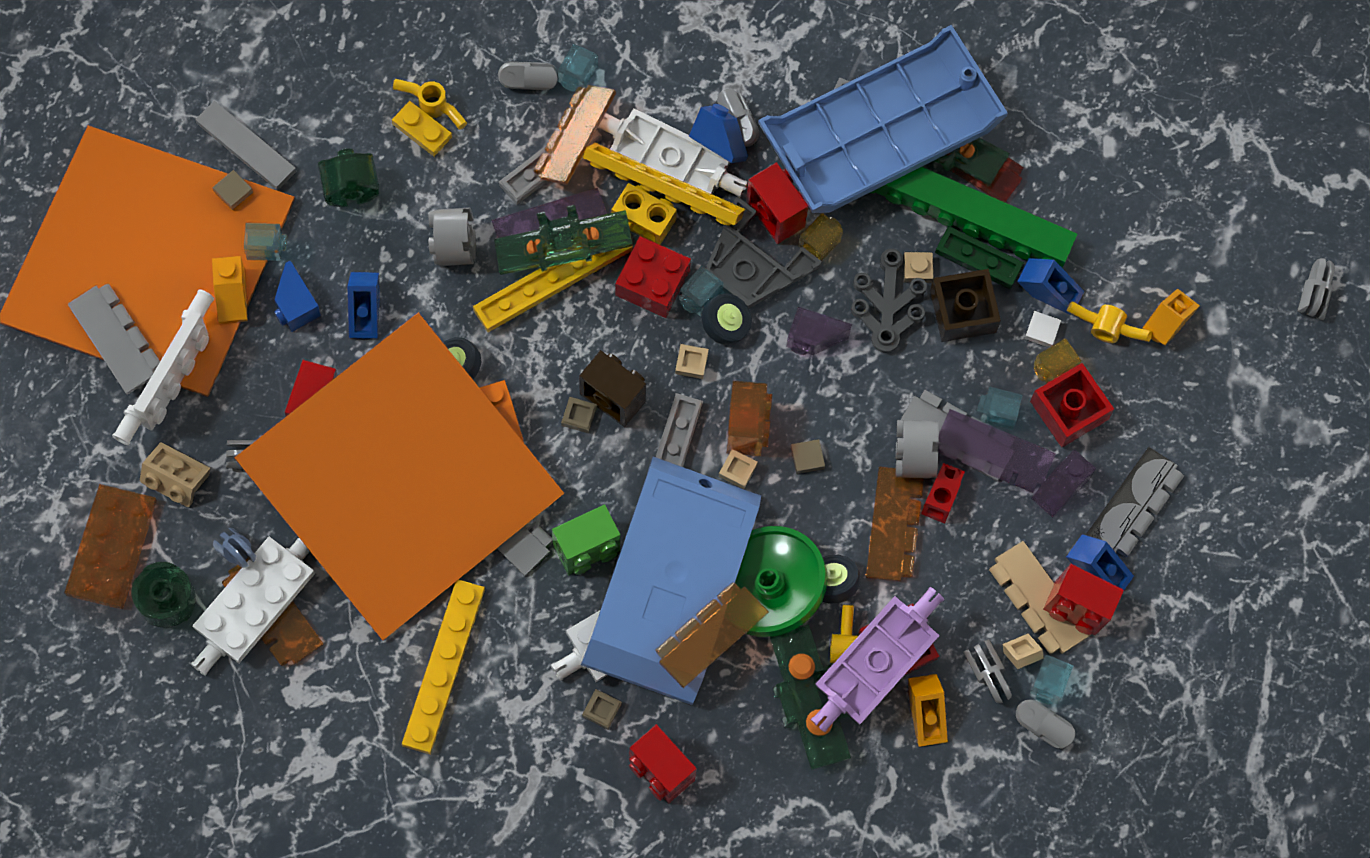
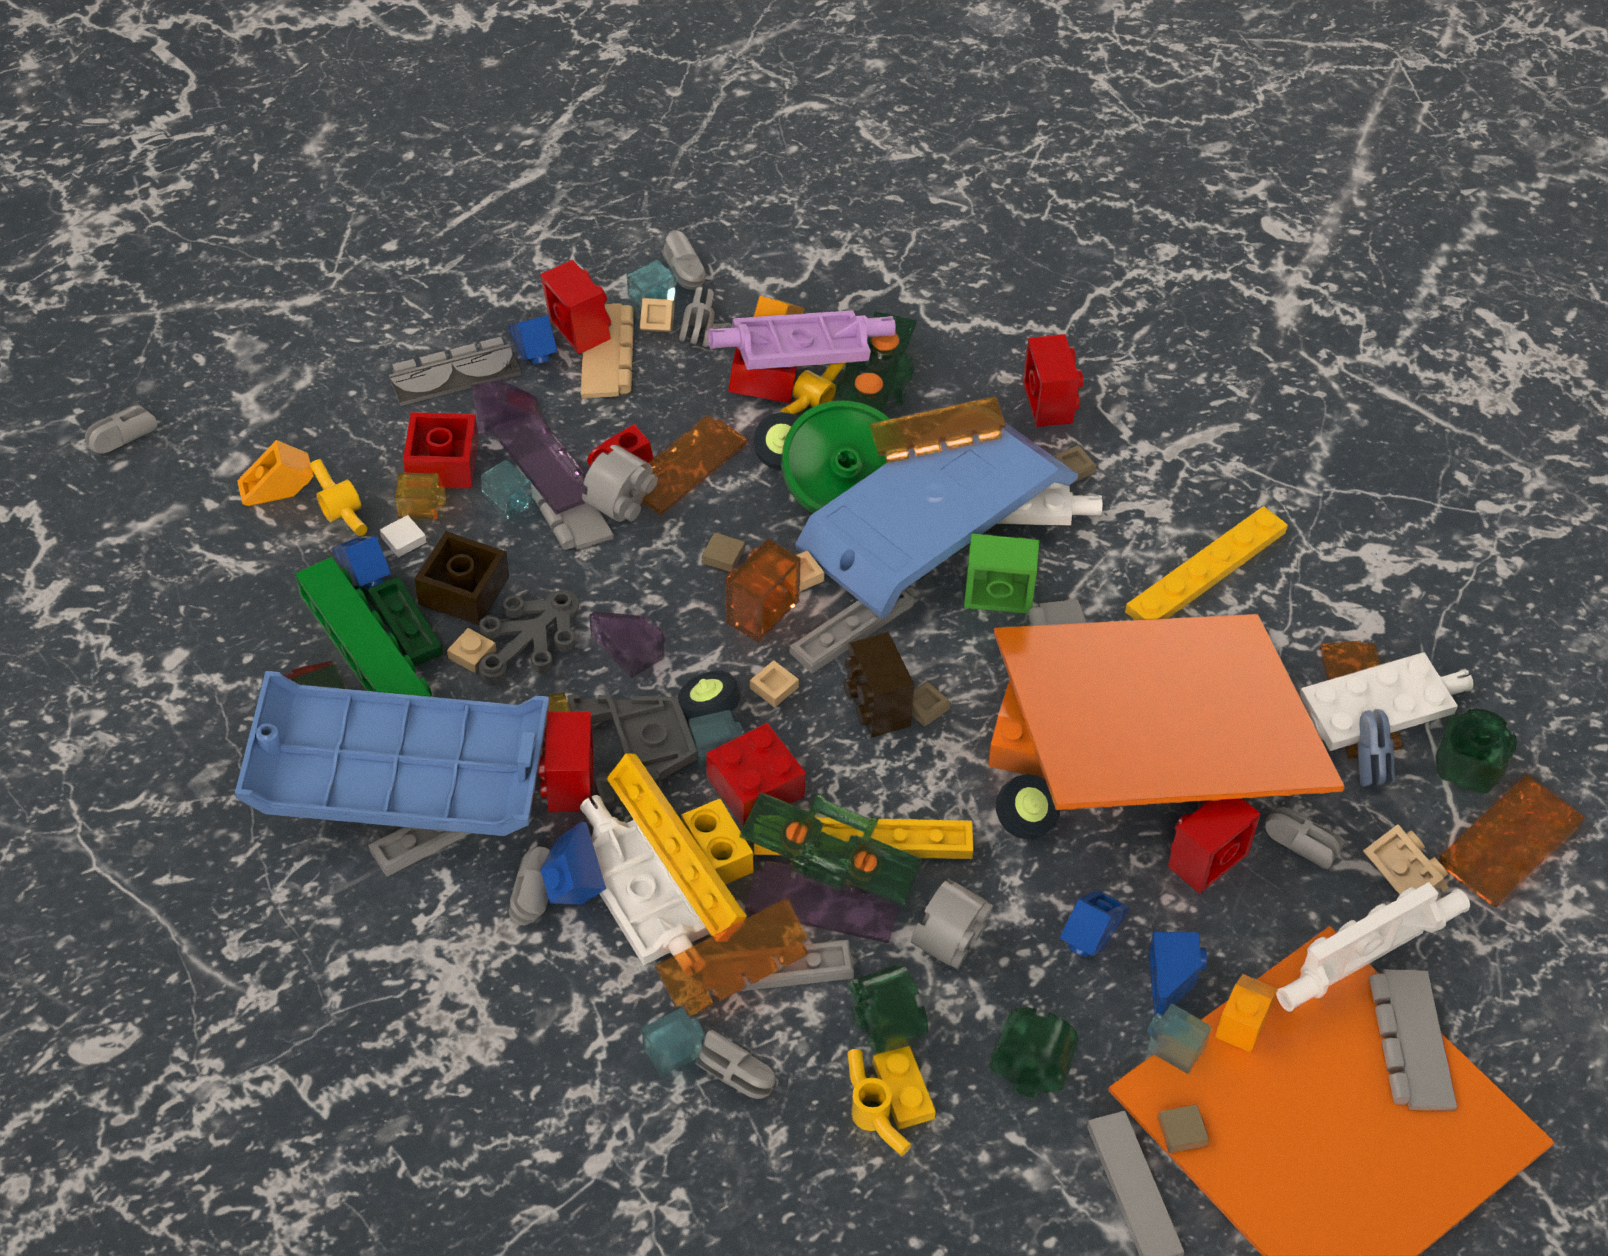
camera: 145 degrees left, 20 degrees down
(456, 154) = (888, 1008): none -> clear green brick

